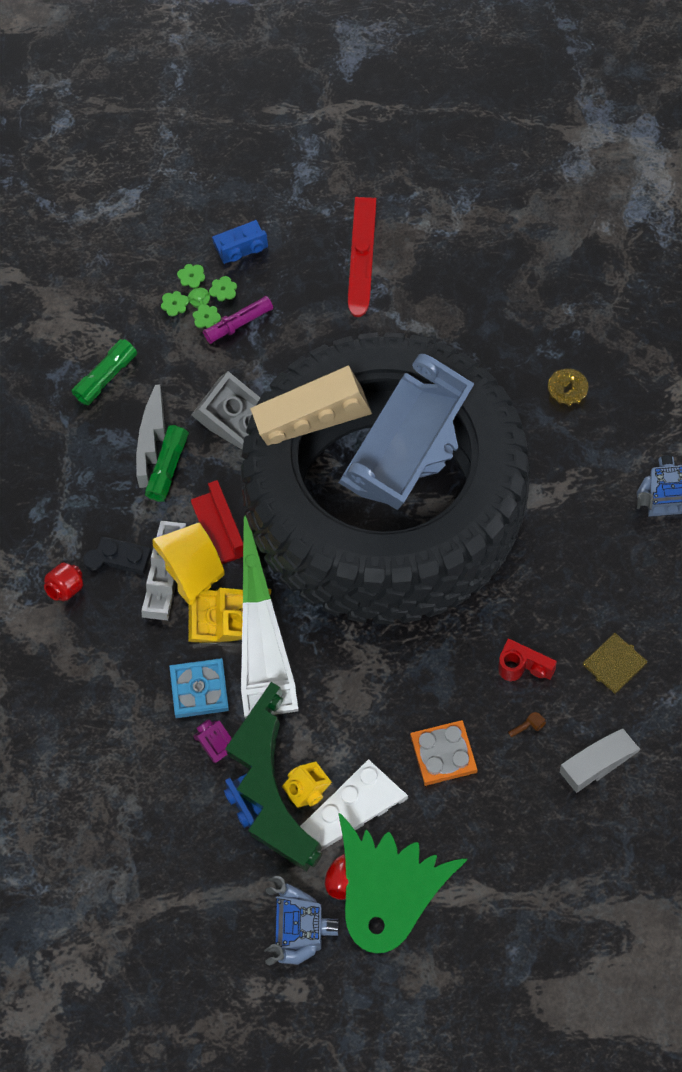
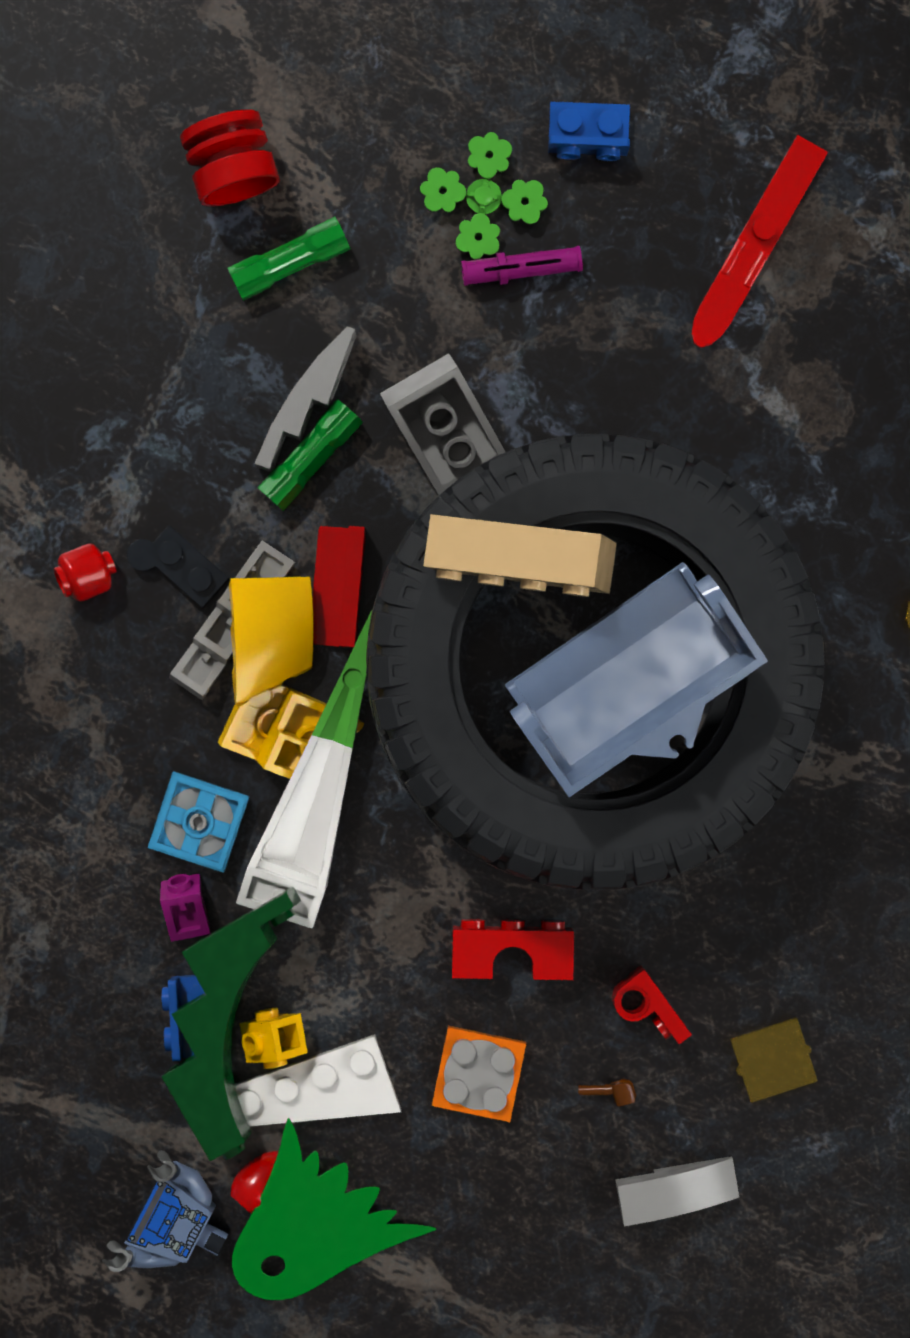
camera: 25 degrees right, 25 degrees up
(46, 332) = (229, 157): none -> red wheel
(443, 658) = (548, 946): none -> red arch

